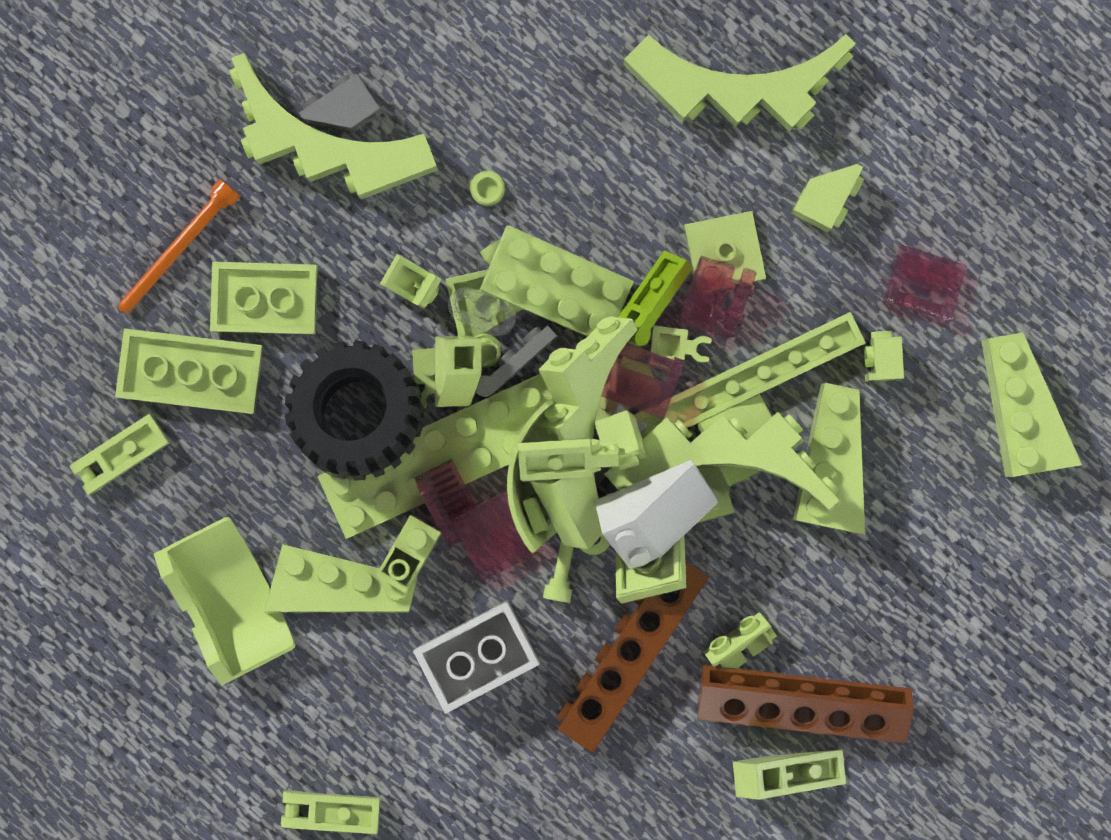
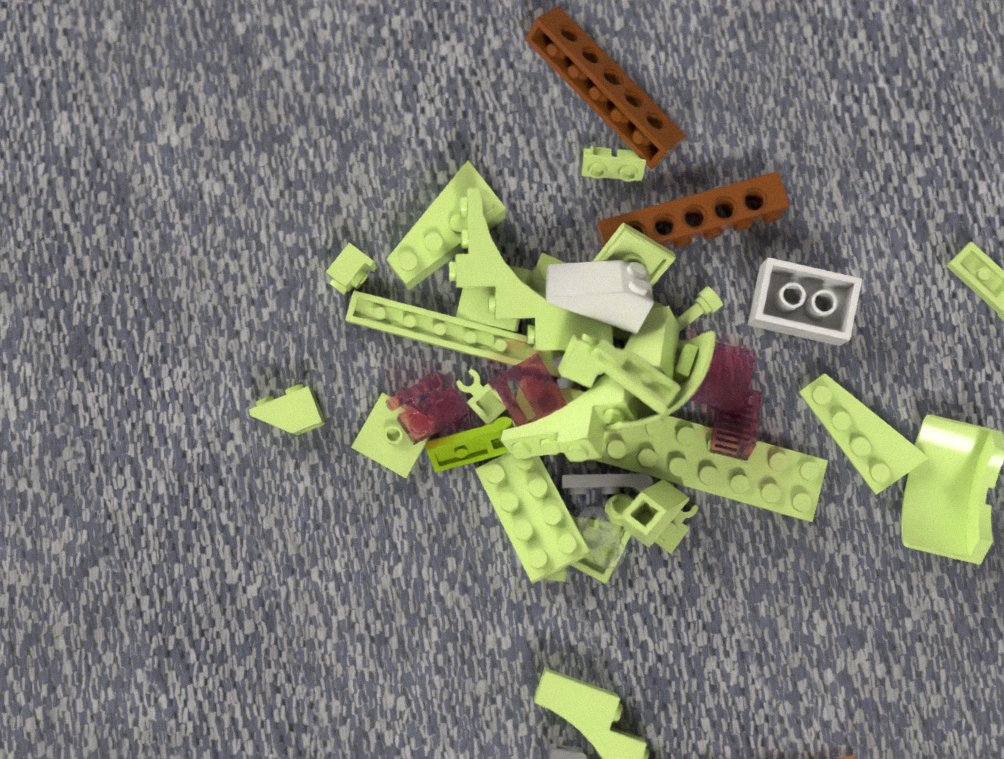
camera: 140 degrees left, 5 degrees down
(120, 453) = (942, 657): yellowish green plate -> none
(189, 371) = (845, 675): yellowish green plate -> none
(263, 298) = (747, 682): yellowish green plate -> none
(334, 371) = (779, 576): black tyre -> none
(408, 553) = (793, 411): yellowish green slope -> none
(411, 282) = (632, 602): yellowish green bracket -> none
(487, 188) = (521, 623): yellowish green tile -> none
(736, 96) = (258, 510): yellowish green arch -> none
(788, 773) = (656, 53): yellowish green slope -> none
(928, 273) = (269, 301): clear pink plate -> none
(1024, 411) = (289, 152): yellowish green wedge -> none

